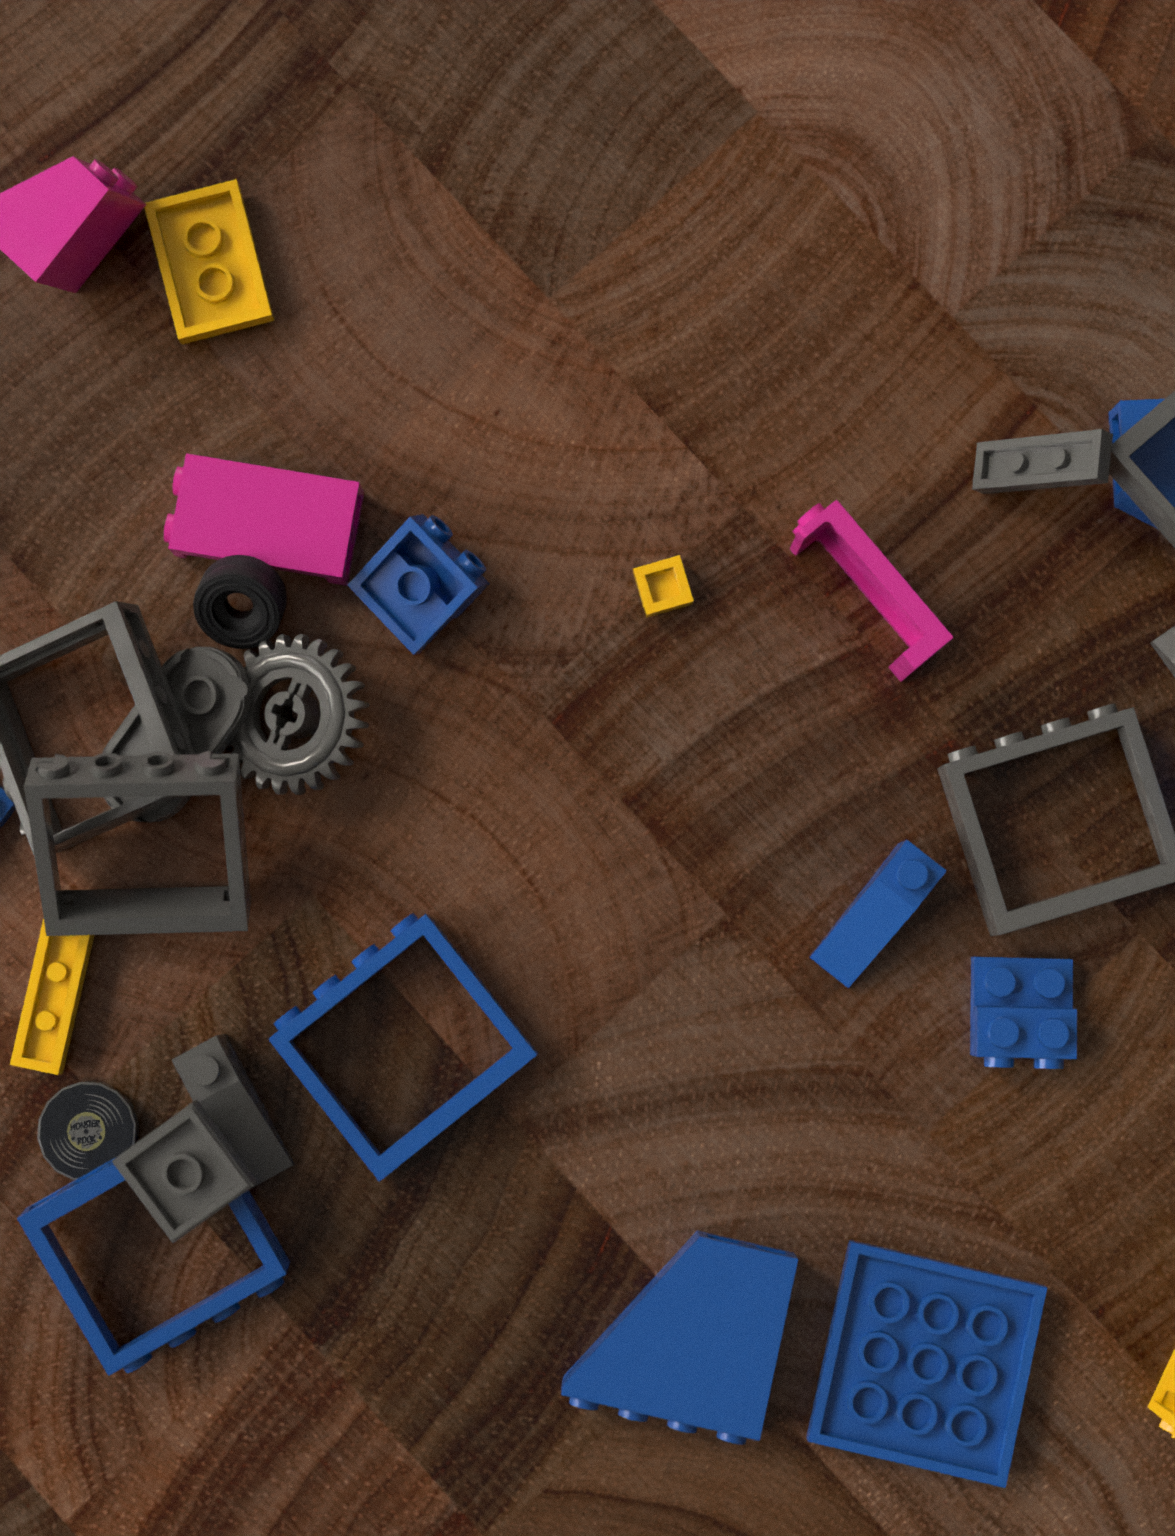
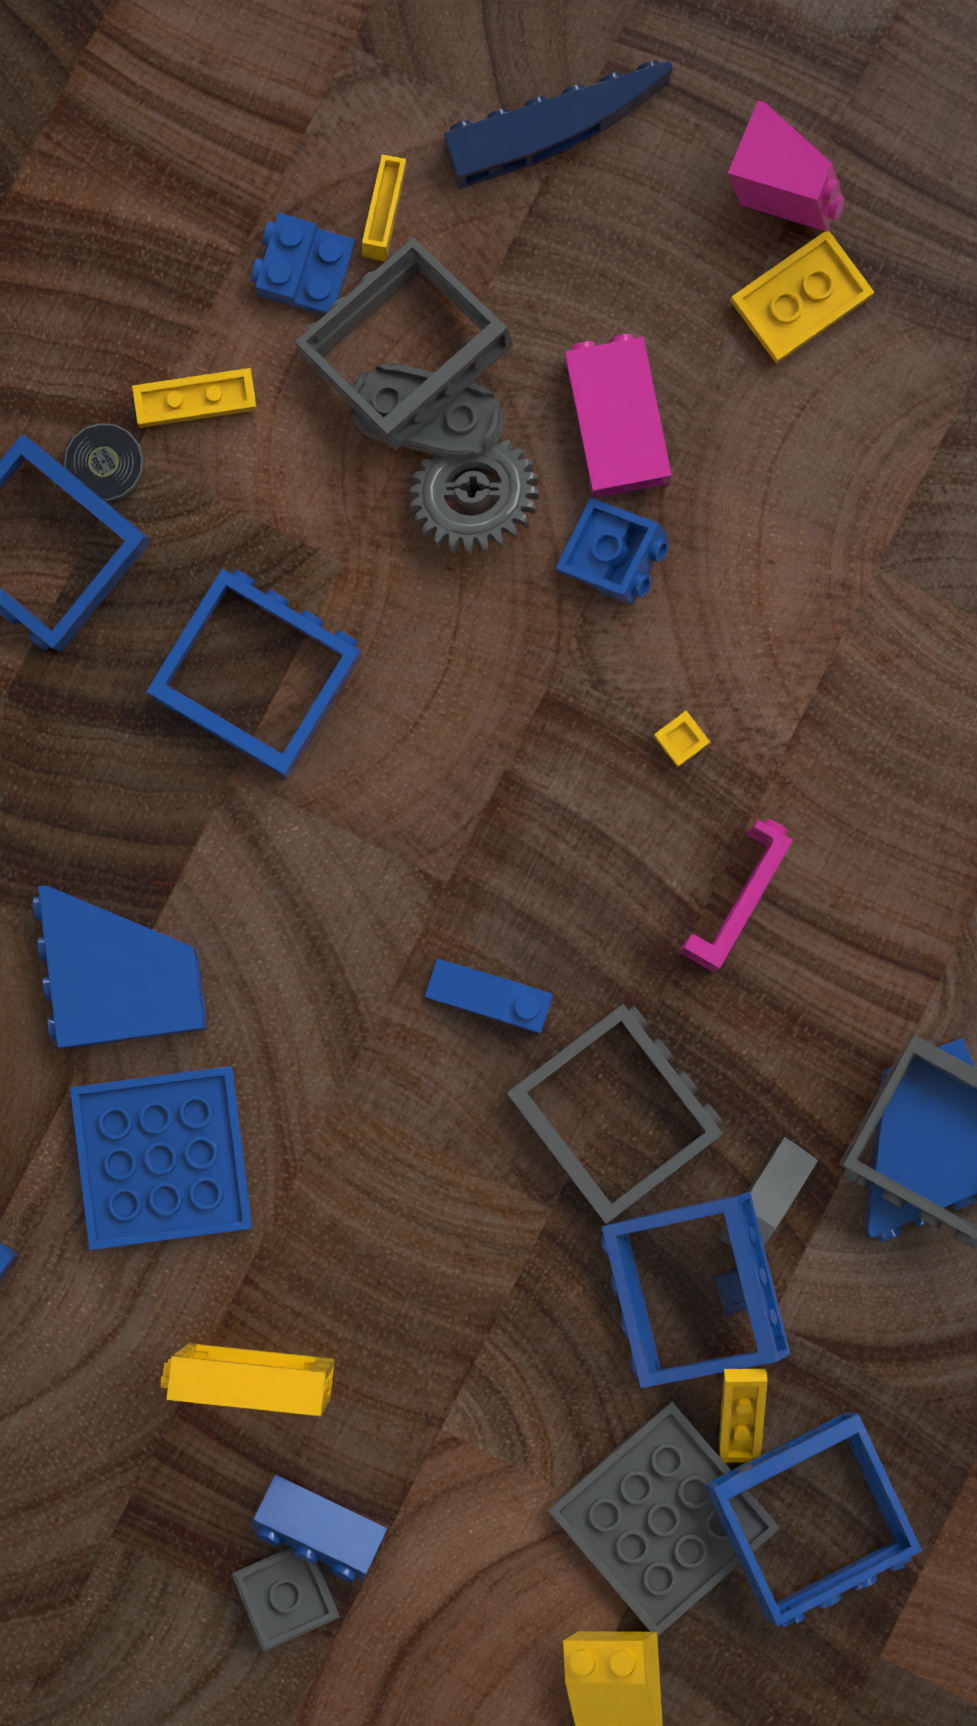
camera: 70 degrees right, 0 degrees up
(139, 908) = (283, 434): dark grey window -> none
(184, 1171) = (101, 542): dark grey plate -> none
(228, 1096) = (160, 564): dark grey slope -> none
(244, 576) = (564, 427): black tyre -> none
(1022, 1011) = (456, 1136): blue plate -> none
(1043, 462) = (888, 993): dark grey plate -> none

